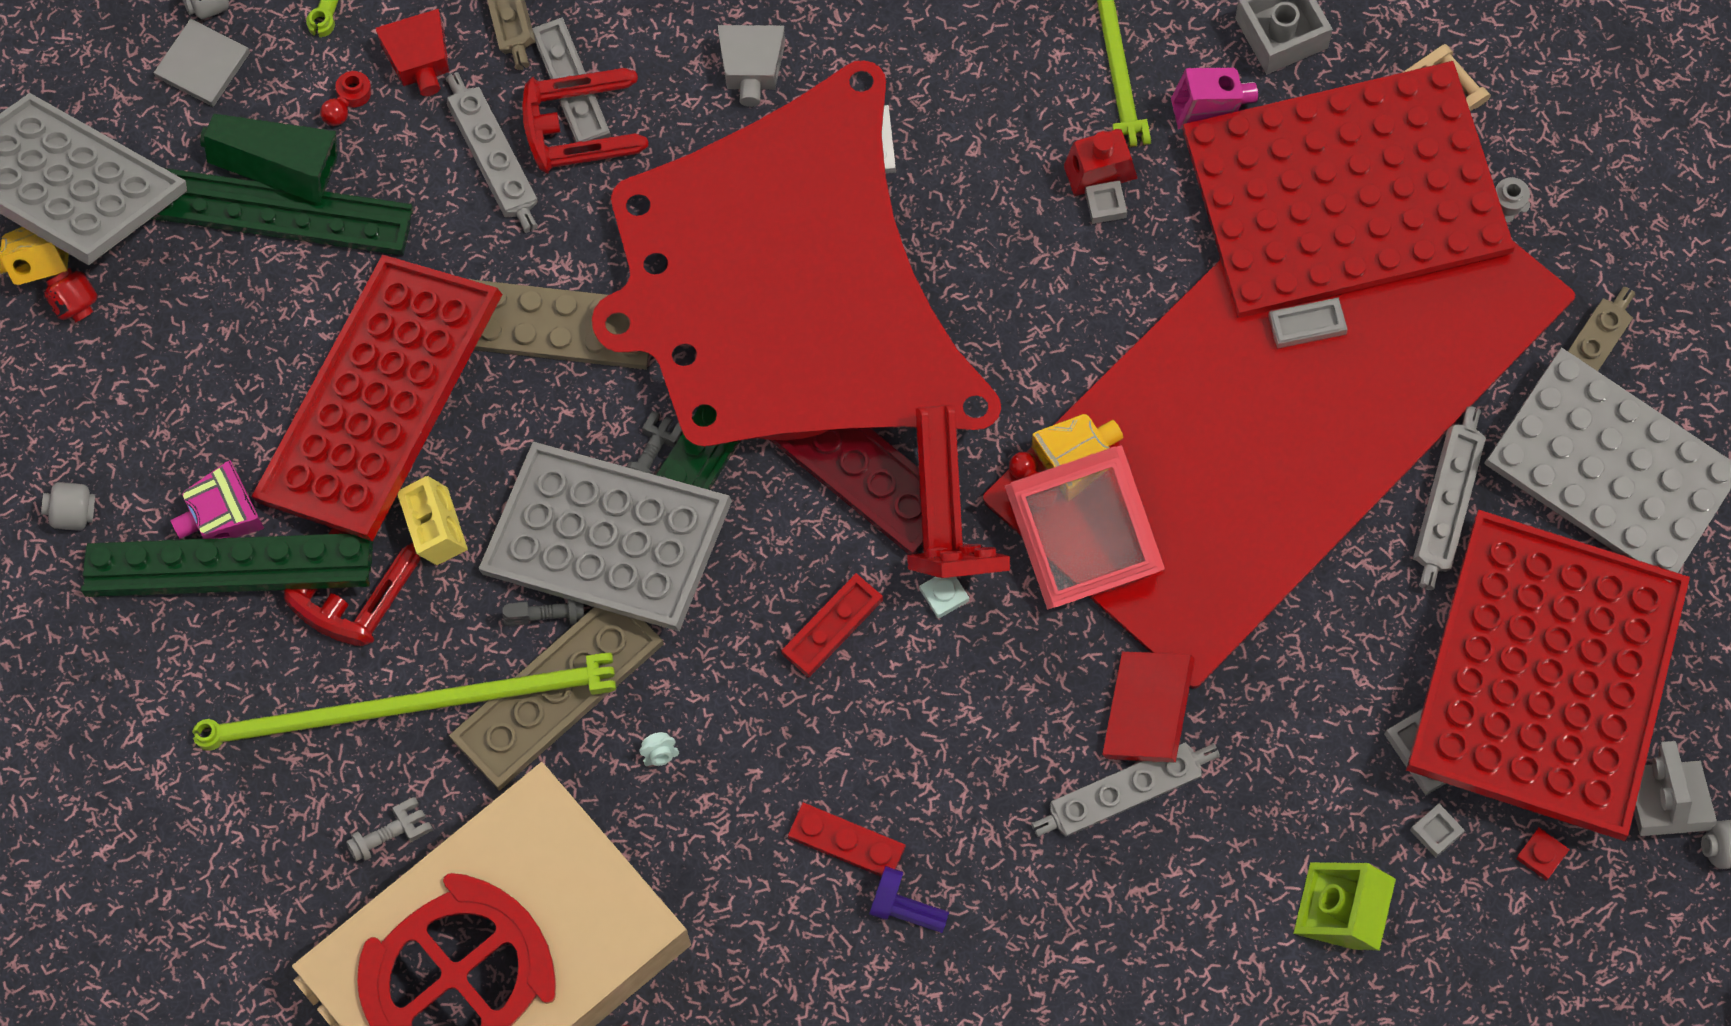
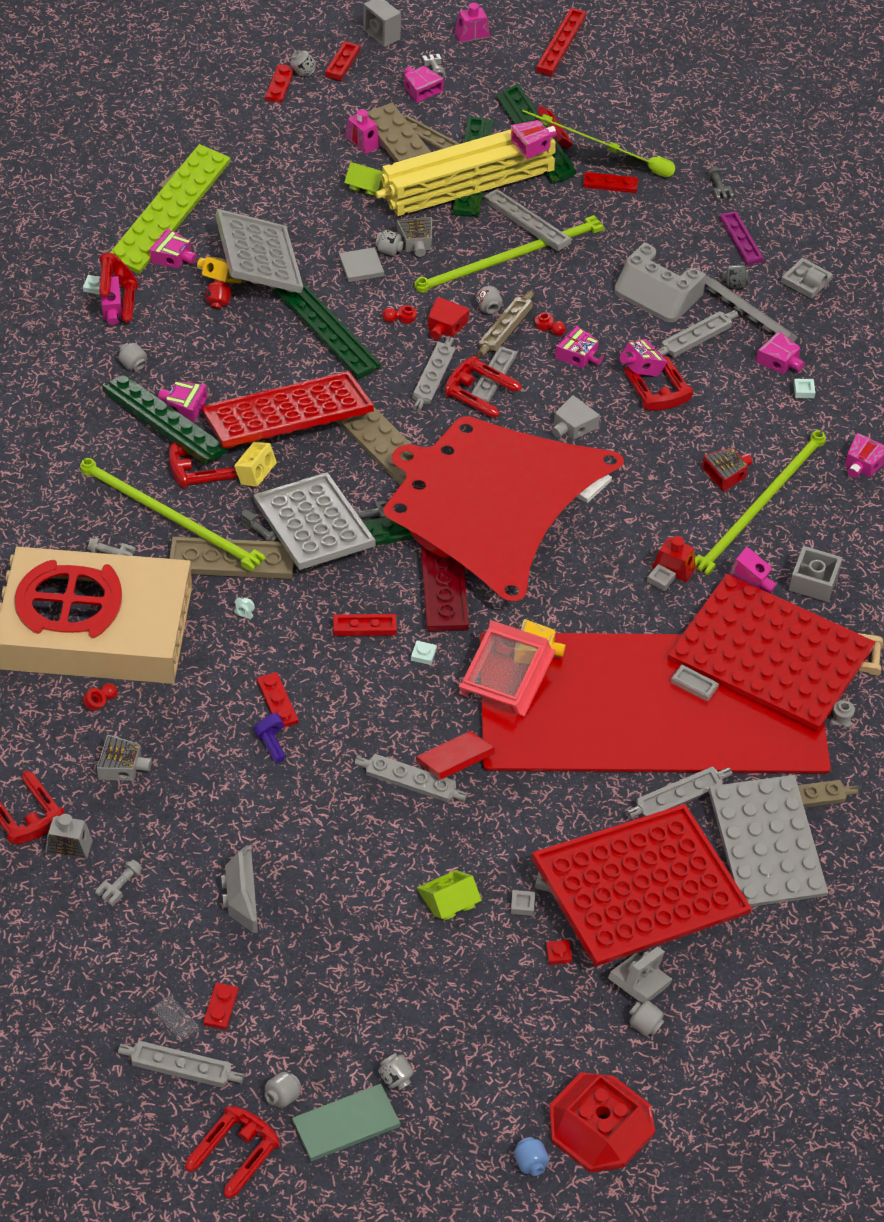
camera: 40 degrees right, 20 degrees down
(273, 153) = (349, 308): dark green slope -> none
(940, 503) = (443, 630): red bracket -> none

